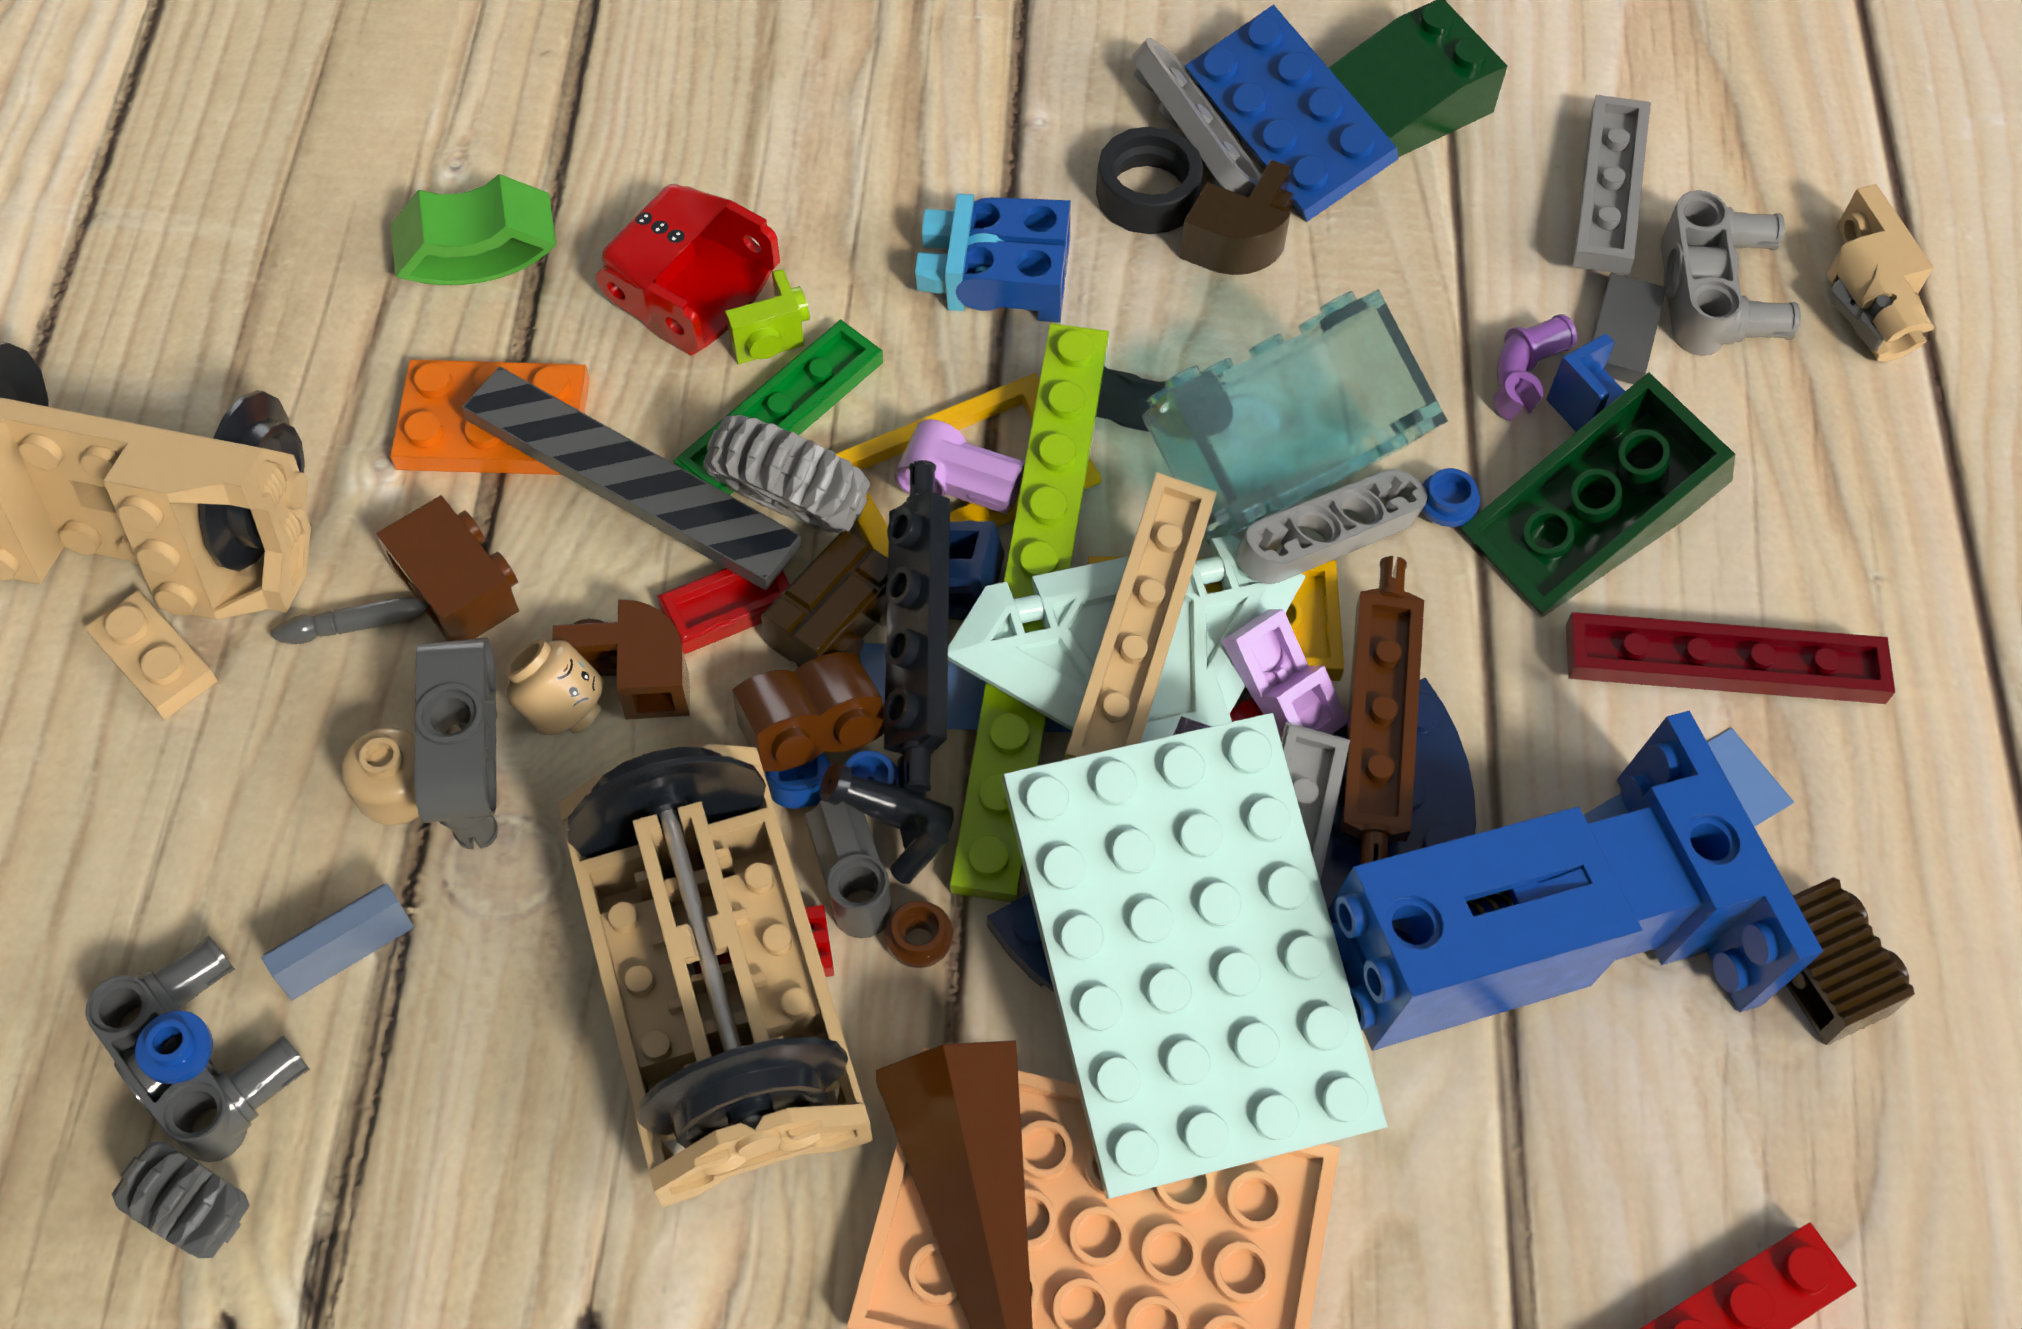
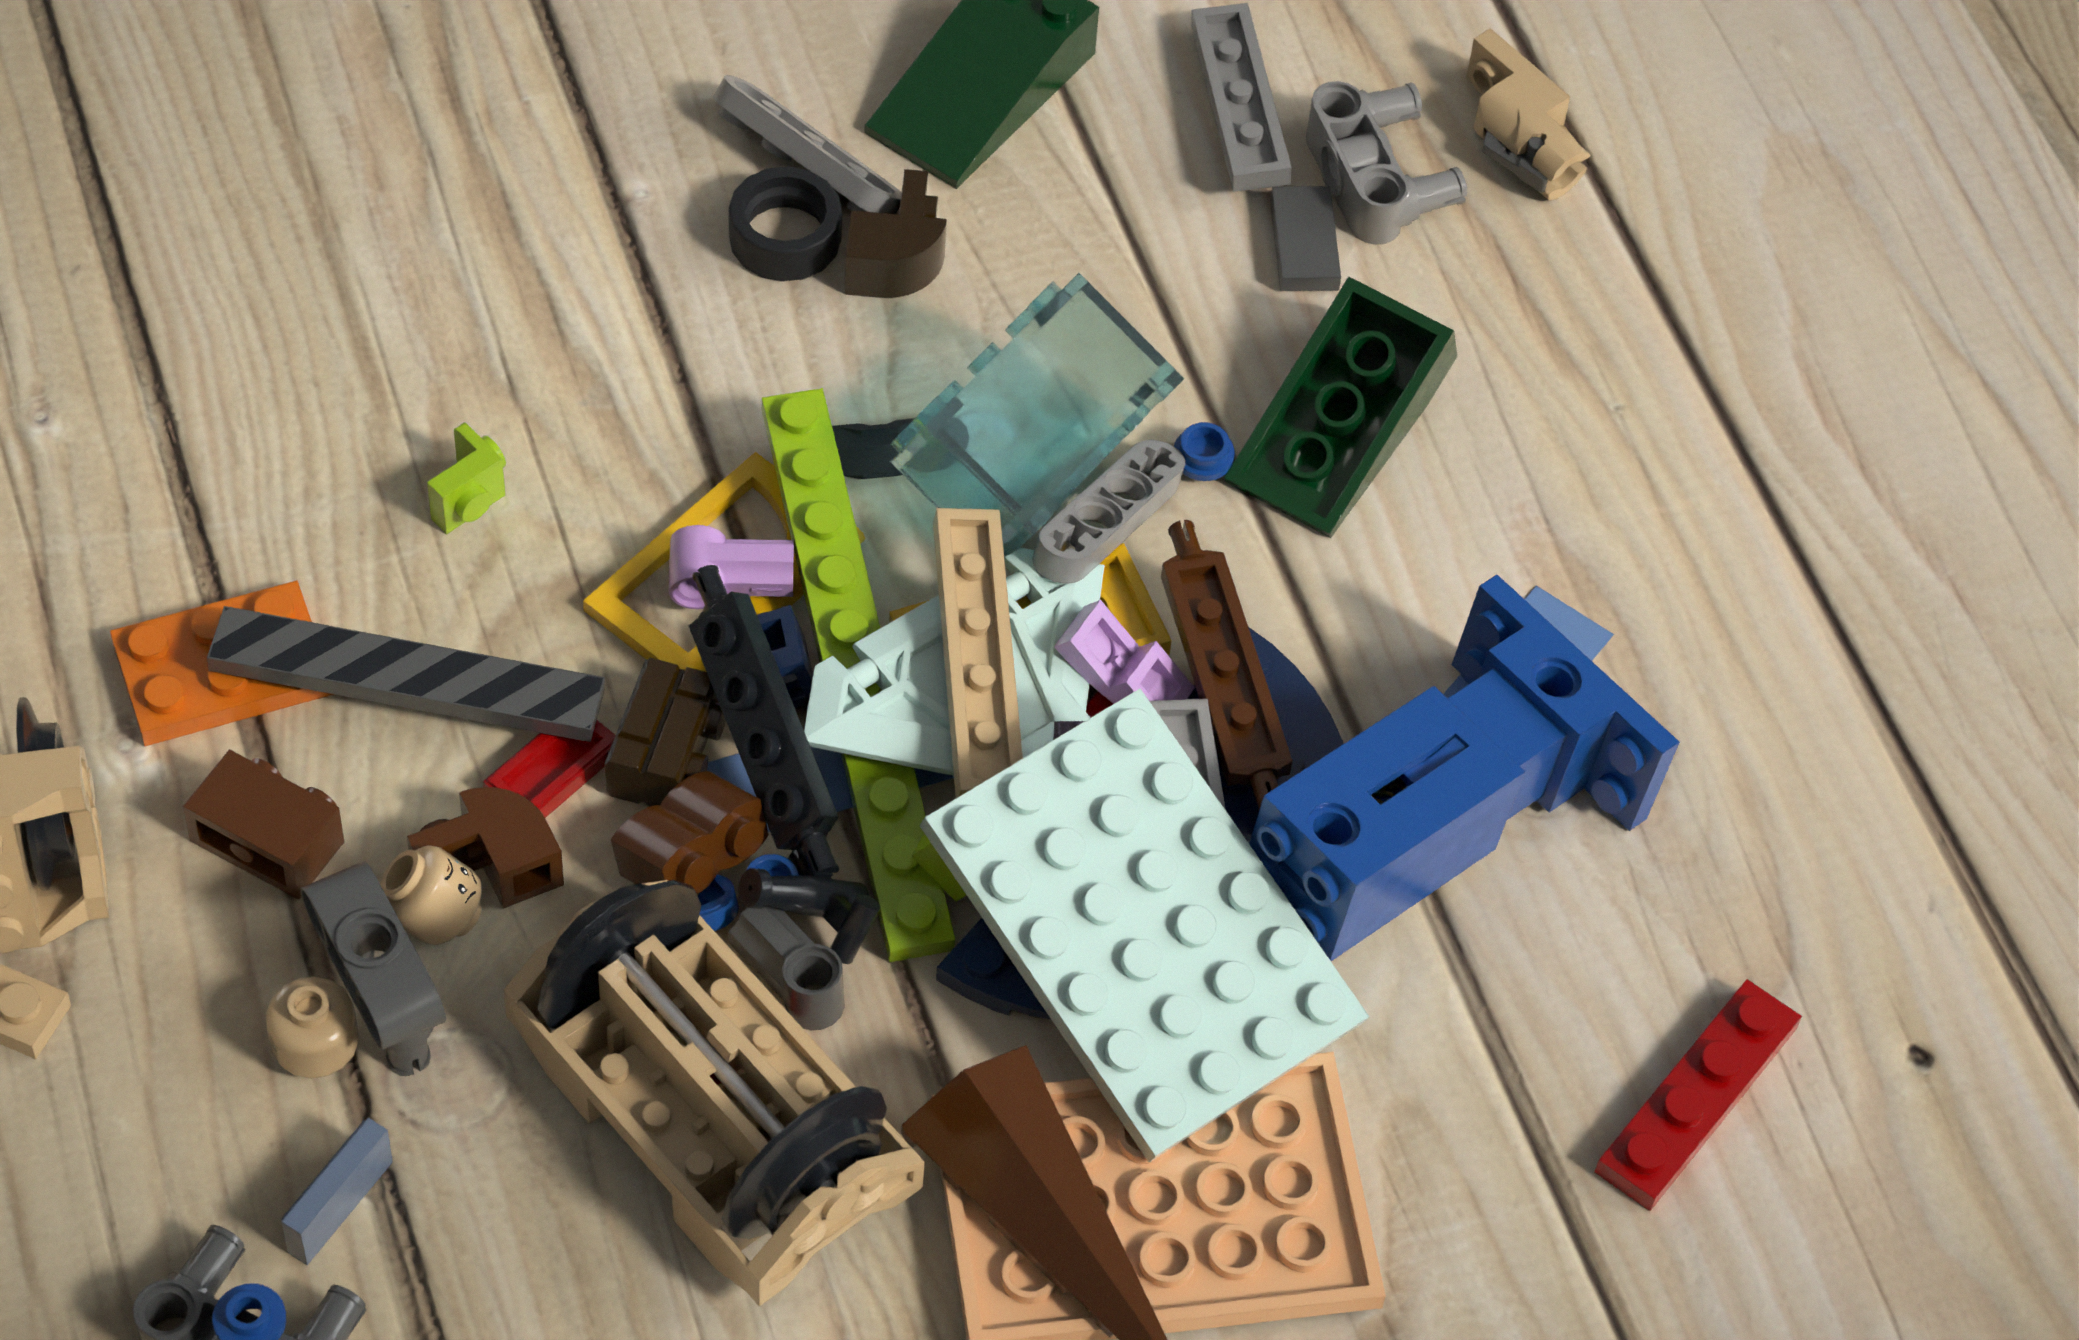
camera: 25 degrees left, 5 degrees down
(349, 619) = (141, 923): dark grey piece -> none
(472, 233) = (112, 483): bright green brick -> none
(688, 264) = (358, 448): red piece -> none
(786, 473) = (569, 621): light grey gear -> none
(799, 390) = (518, 560): green tile -> none
(918, 916) = (884, 988): reddish brown plate -> none
(998, 254) = (669, 344): blue hips -> none
(1292, 111) = (898, 110): blue plate -> none
(1521, 354) = (1218, 292): medium lavender piece -> none
(1582, 383) = (1287, 308): blue panel -> none
(1729, 658) = (1510, 522): dark red plate -> none
(1854, 976) = (1712, 766): dark brown brick -> none

